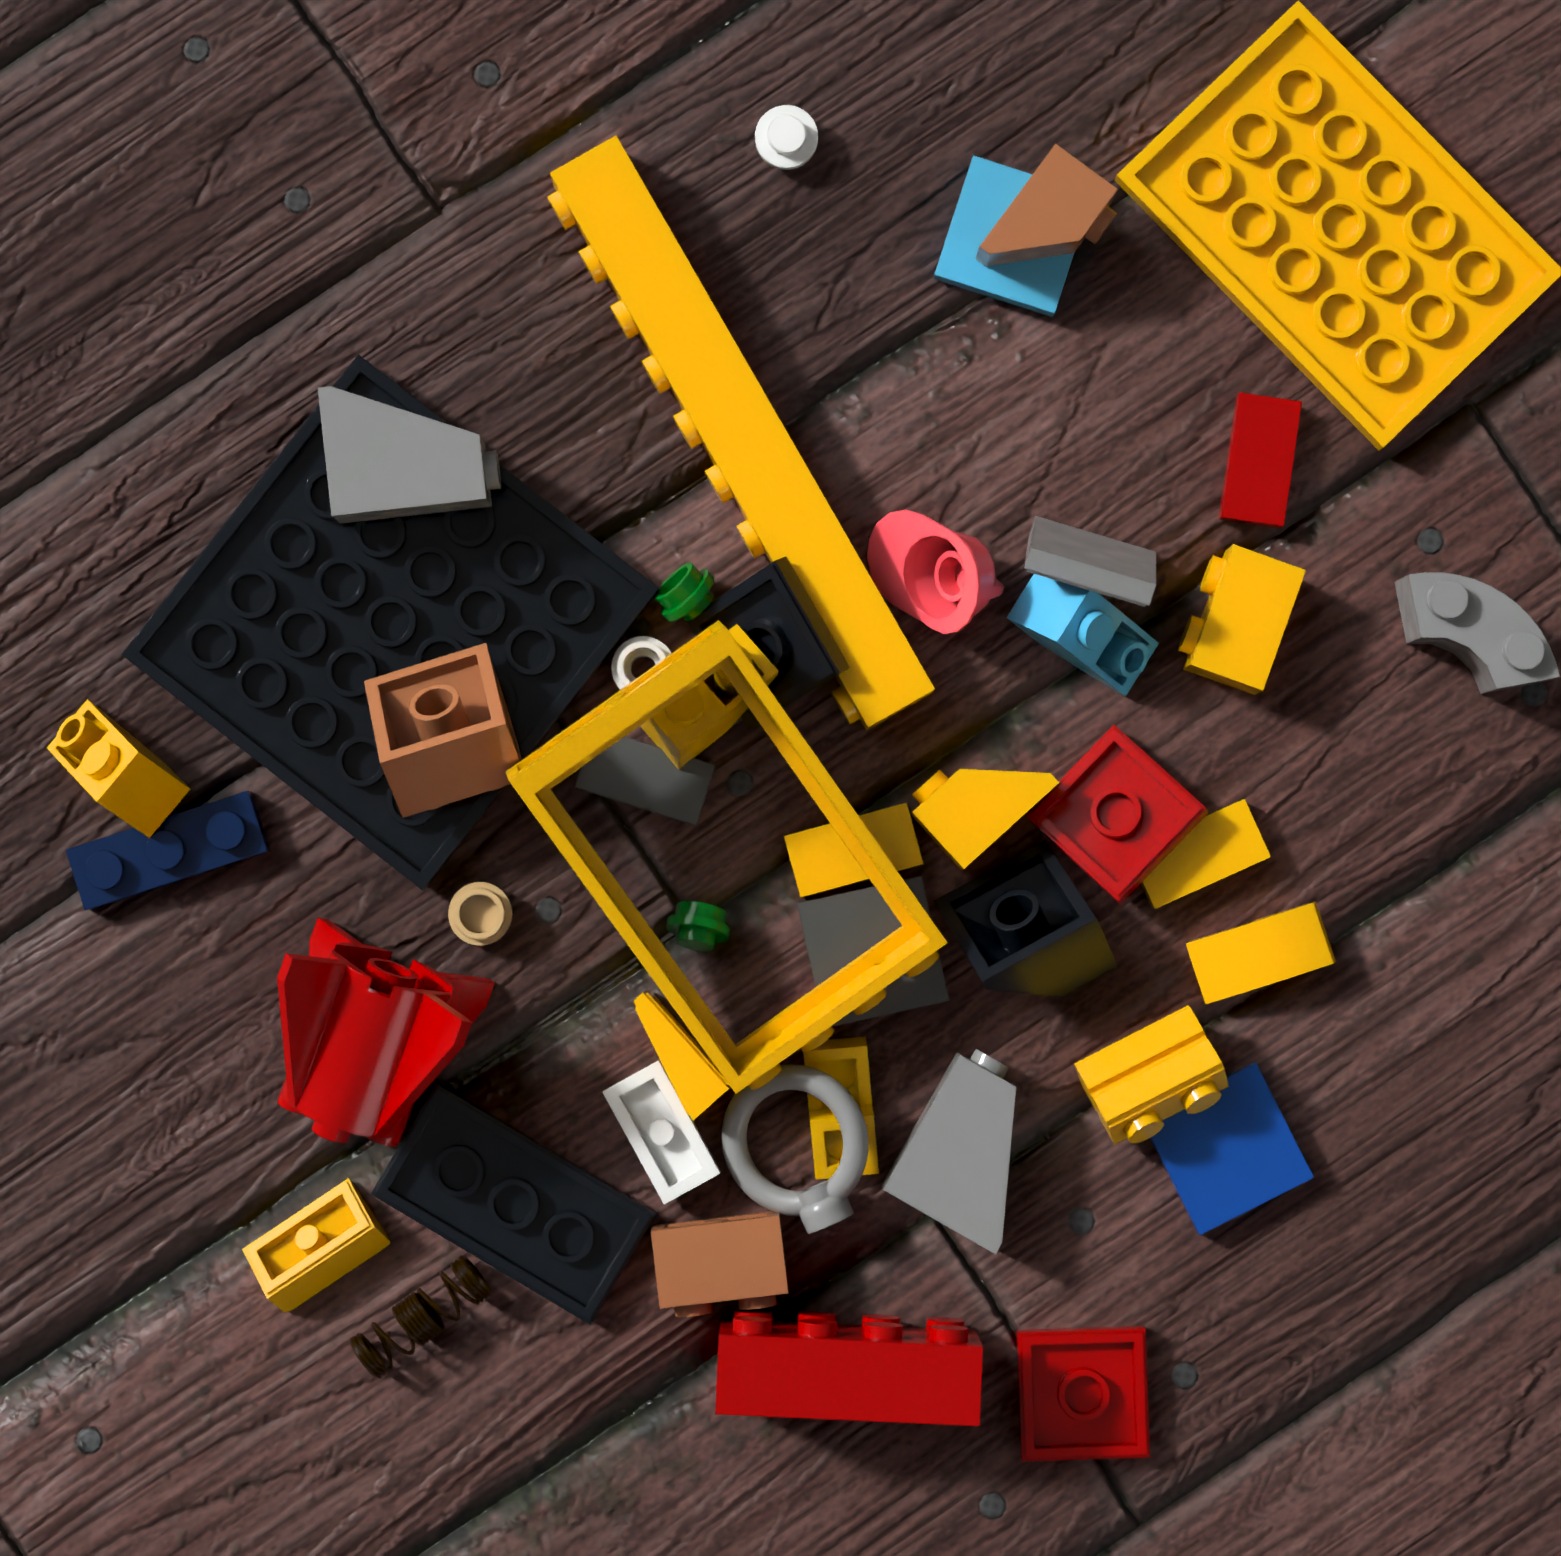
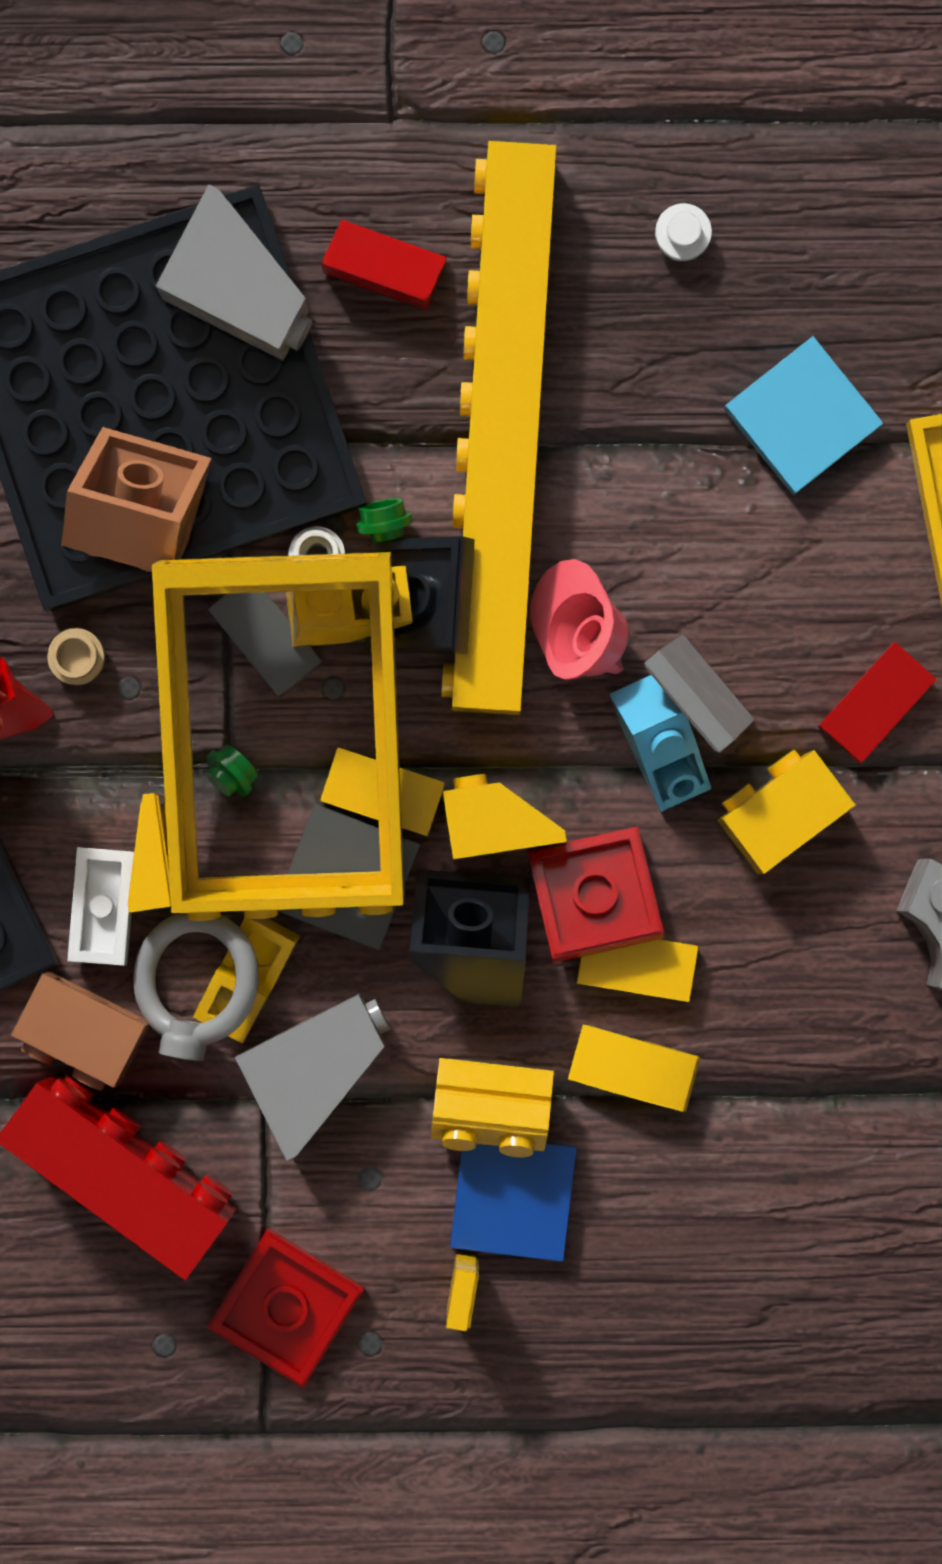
camera: 30 degrees right, 0 degrees up
(524, 352) = (383, 265): none -> red slope
(1051, 213) = (841, 415): nougat slope -> none
(1240, 1266) = (462, 1291): none -> yellow tile

